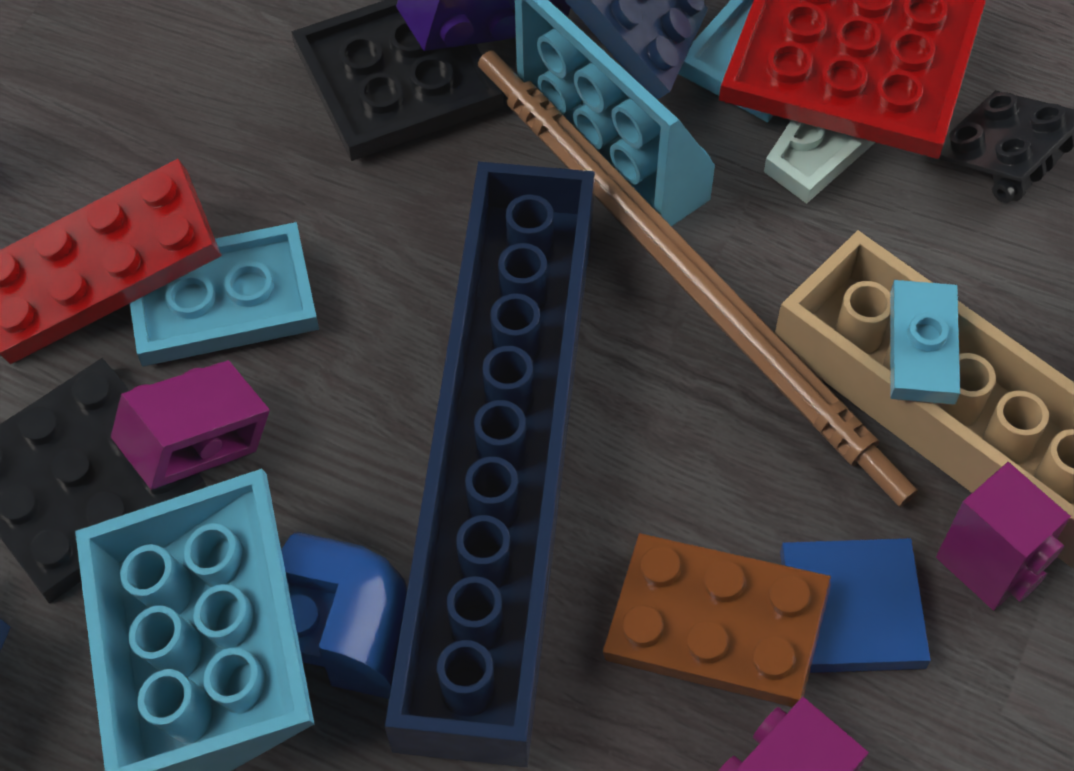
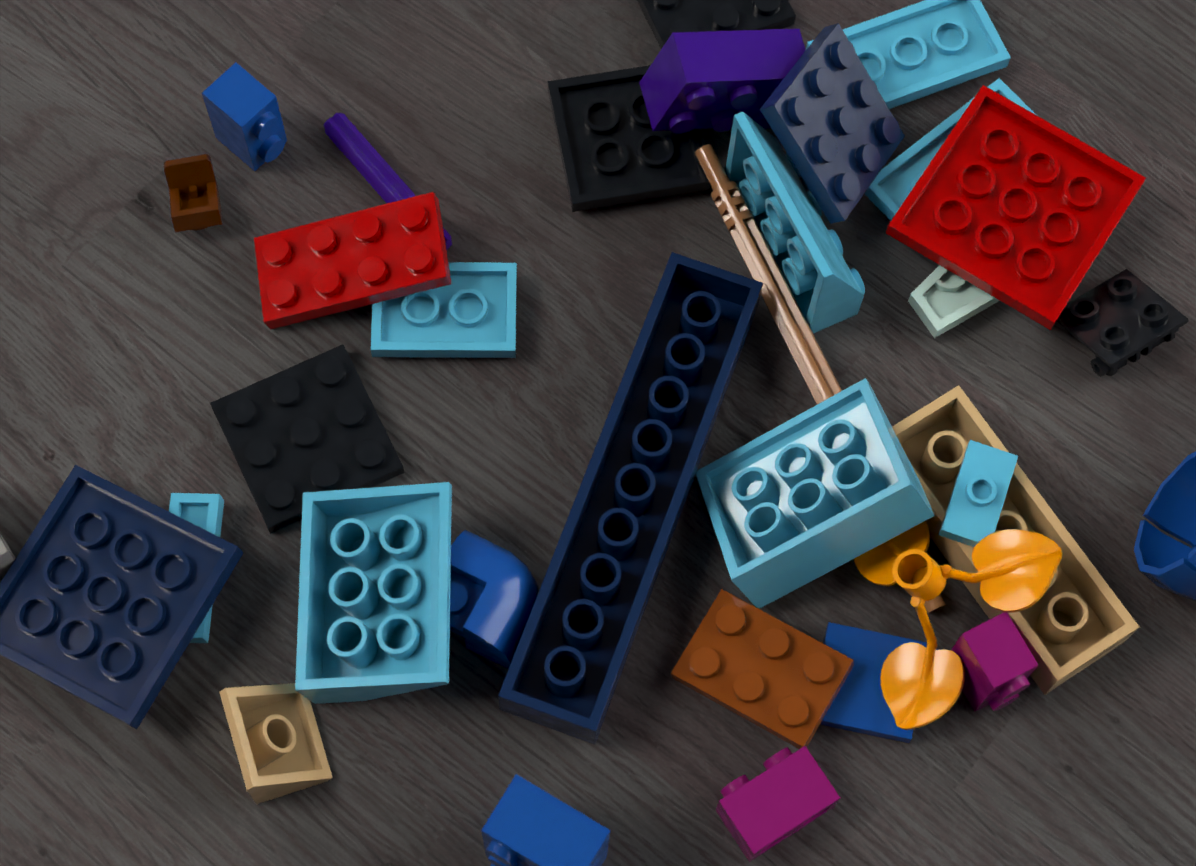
camera: 10 degrees right, 10 degrees up
(94, 154) = (369, 162): none -> dark purple axle
(189, 423) = (401, 420): magenta brick -> none
(723, 392) = (811, 495): none -> medium azure slope
(1001, 412) = (1013, 575): none -> light orange plant

